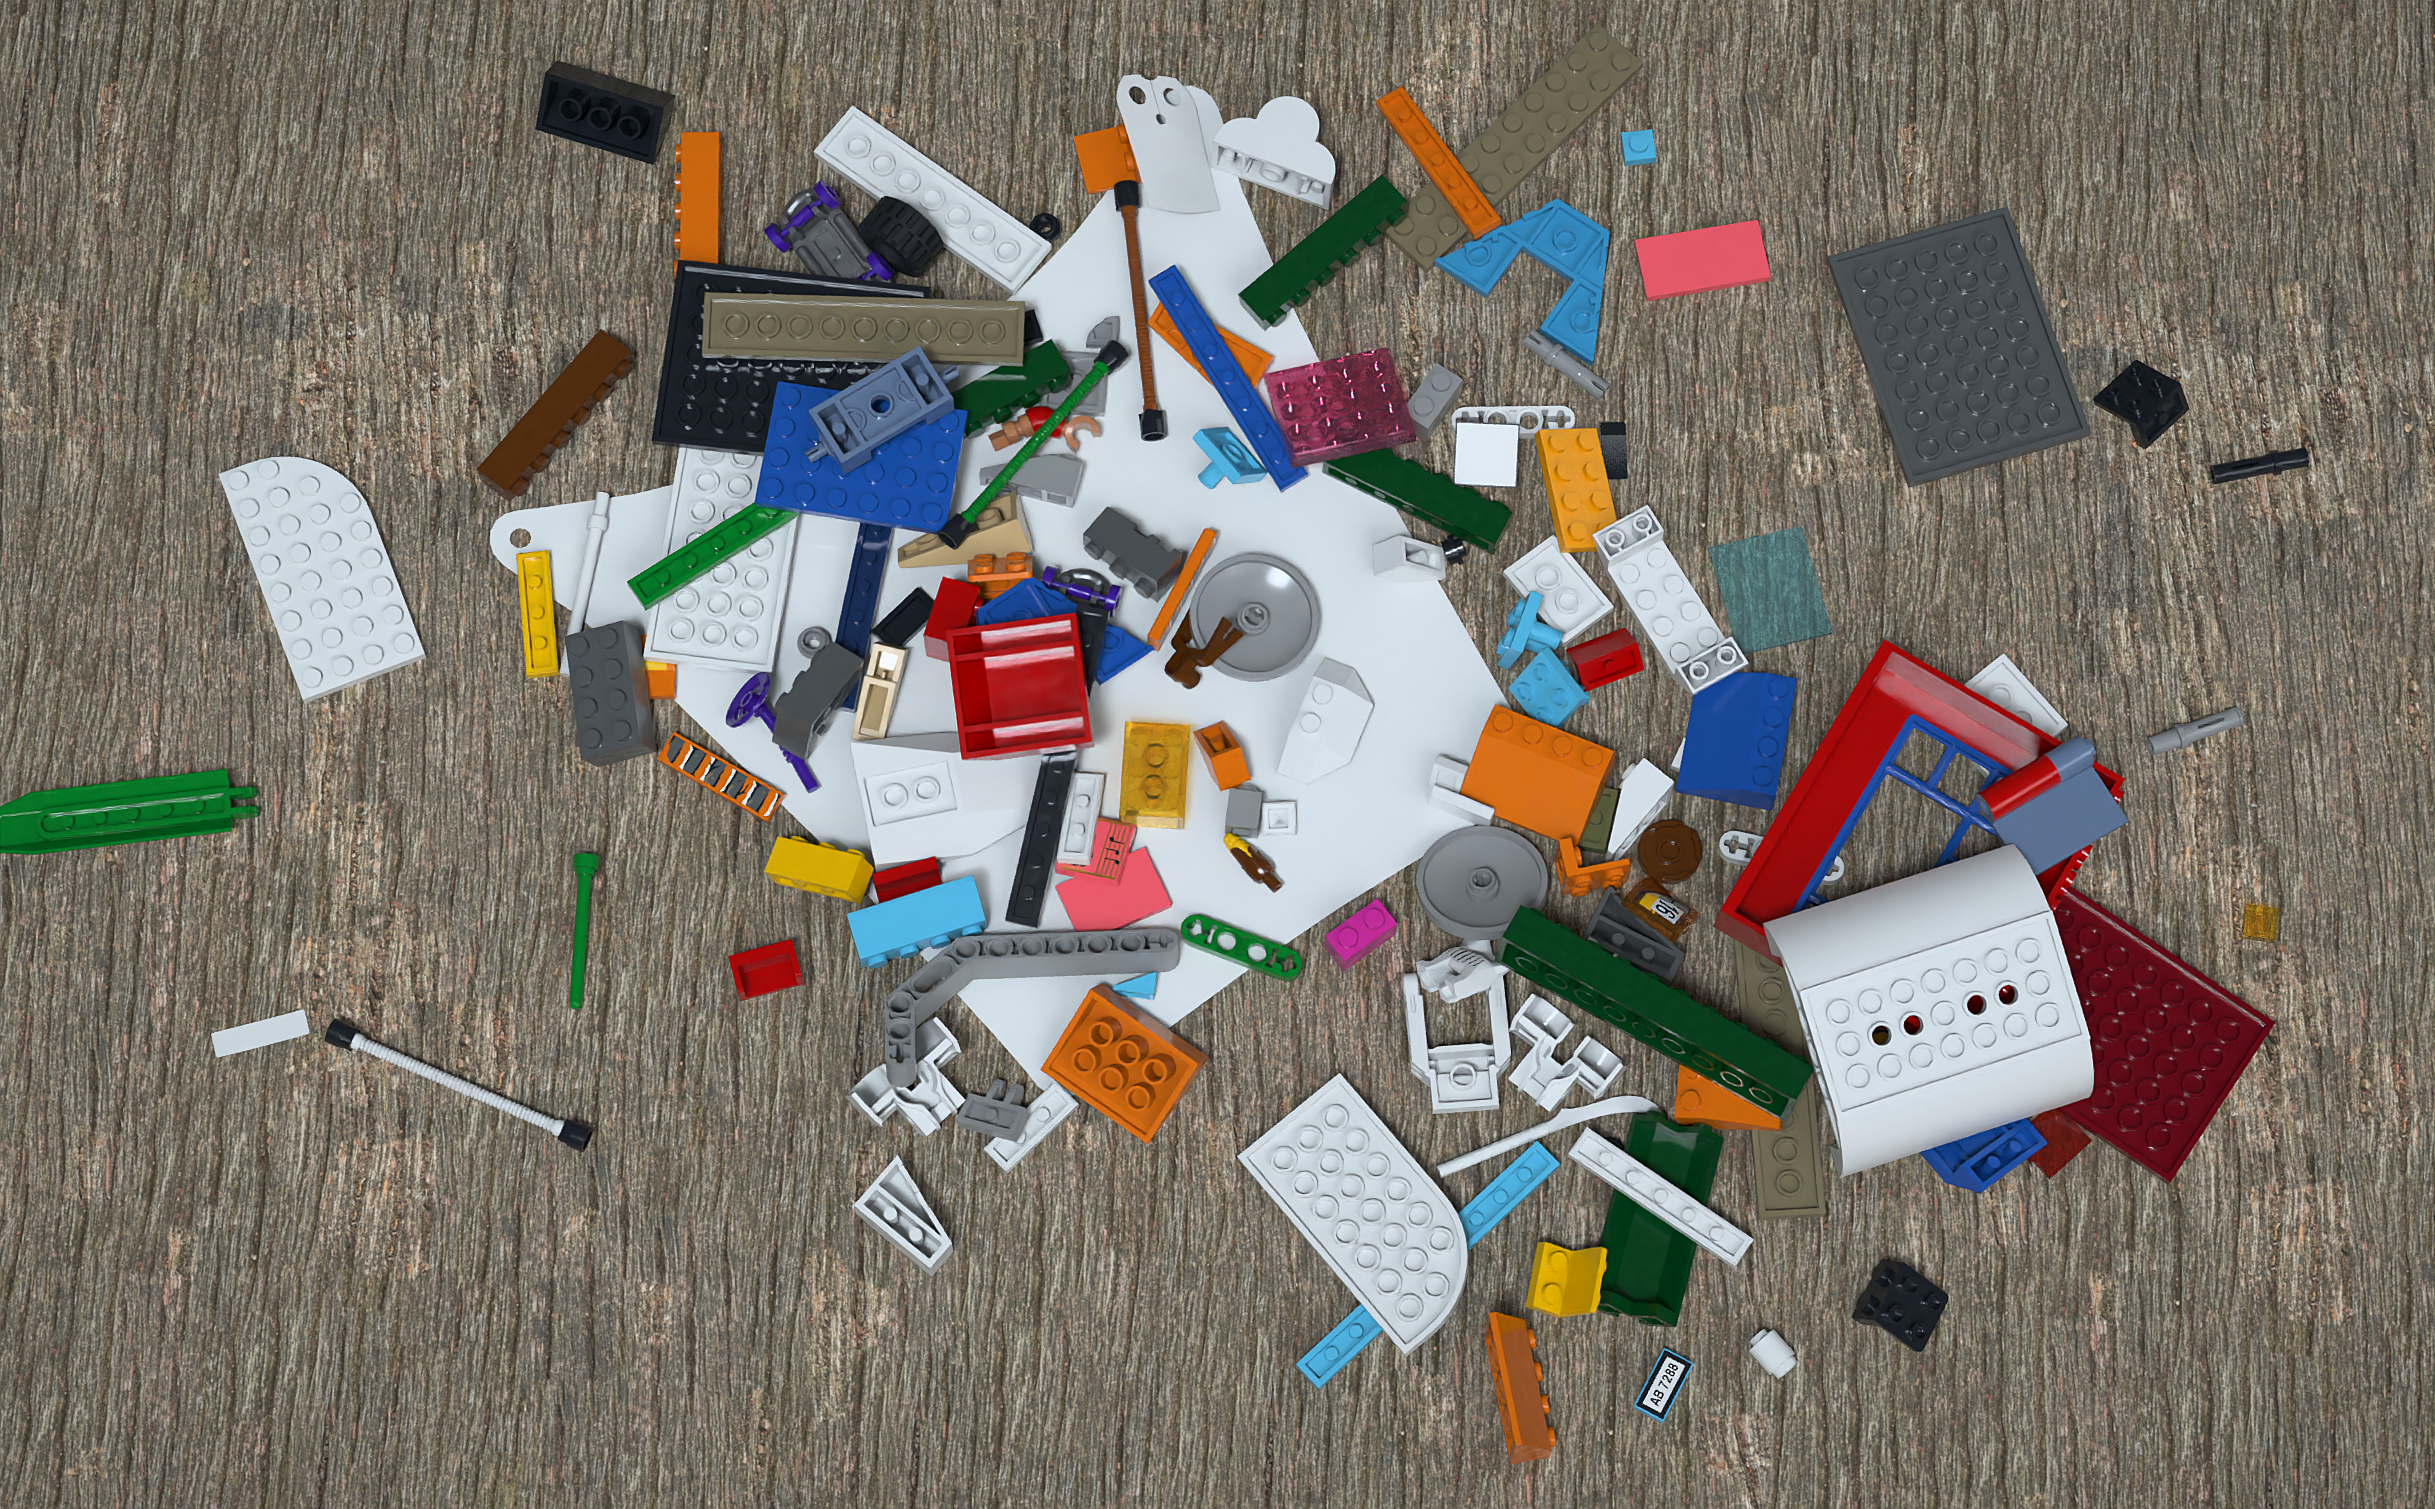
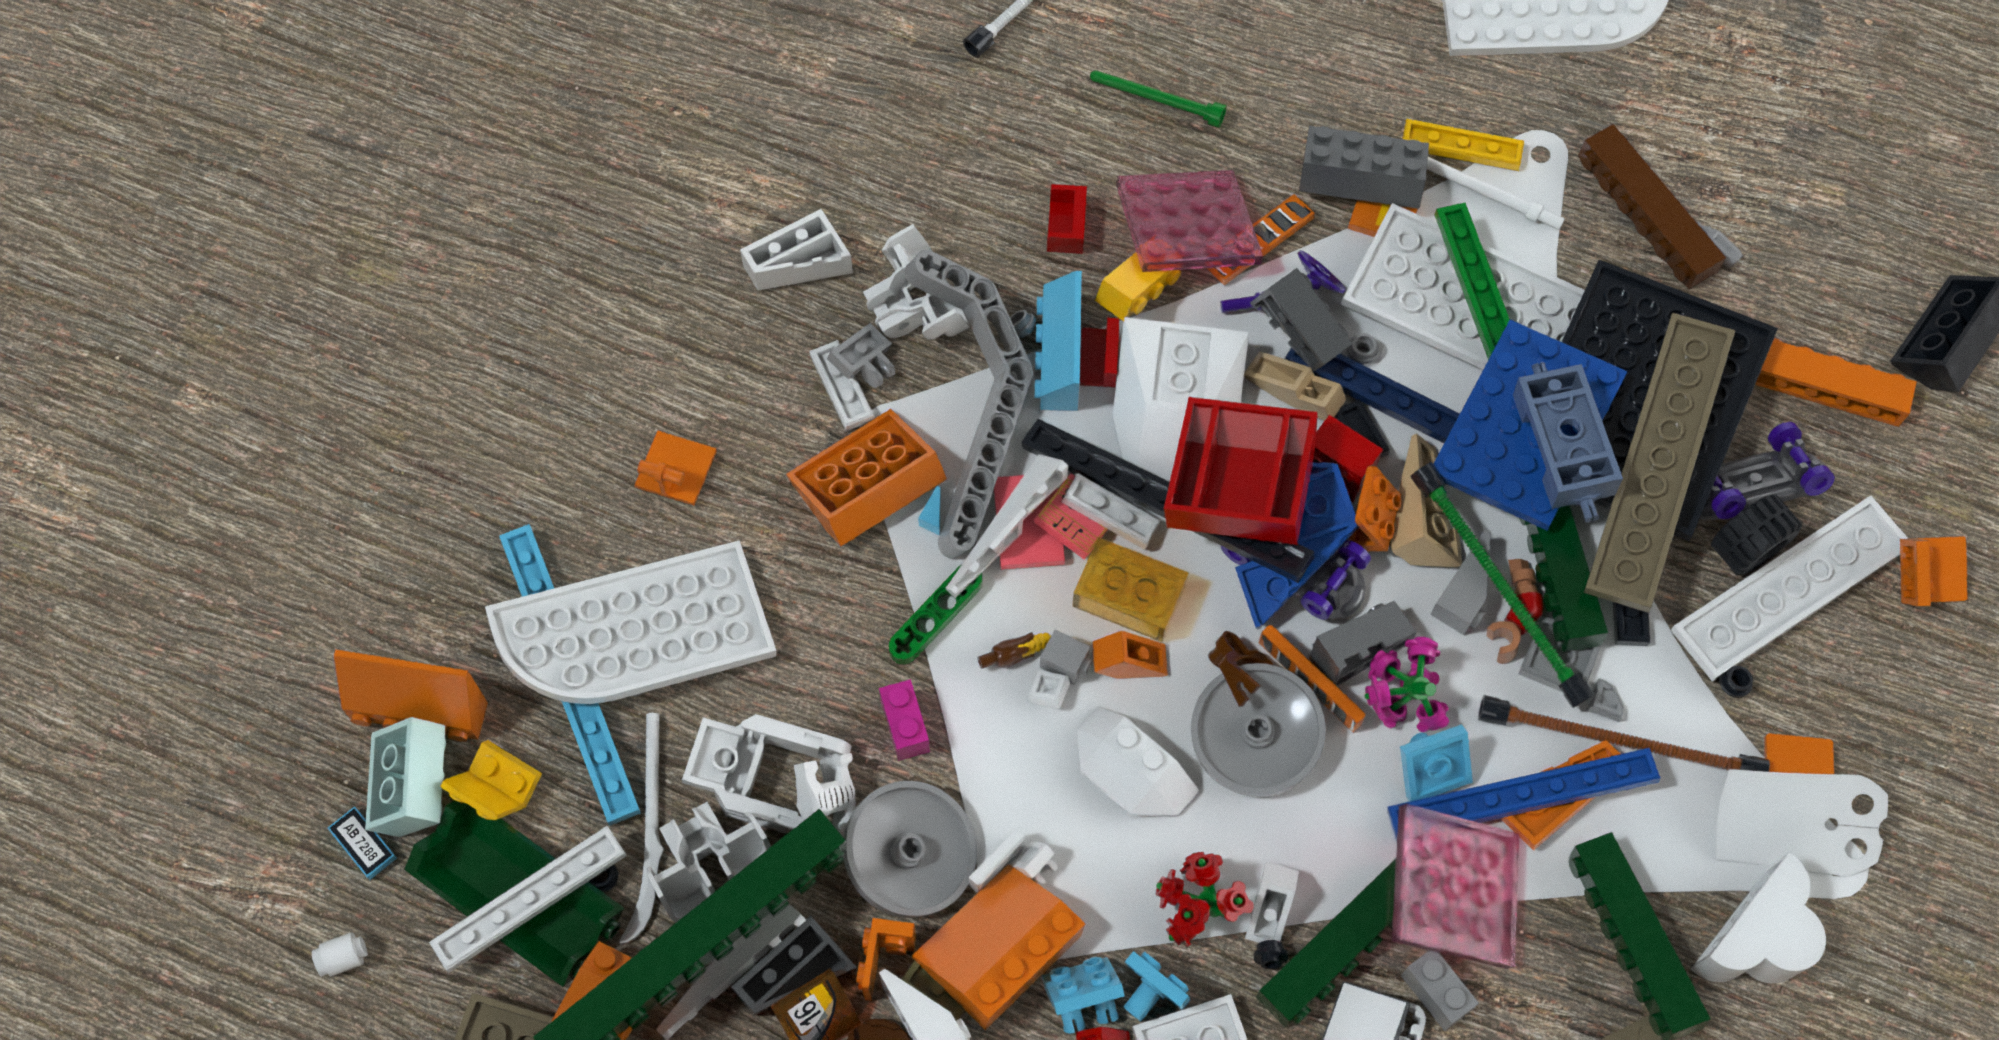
camera: 110 degrees right, 5 degrees down
(574, 343) = (1728, 249): none -> light grey piece
(733, 844) = (1188, 220): none -> clear pink plate
(875, 84) = (1933, 570): none -> orange bracket
(894, 975) = (1023, 322): none -> light grey plate
(1108, 896) = (1036, 485): none -> white wedge
(1152, 496) = (1417, 684): none -> dark pink plant
(1181, 1252) = (675, 468): none -> orange plate
(1427, 611) = (1195, 909): none -> red plant
(1594, 1358) = (405, 777): none -> light aqua brick

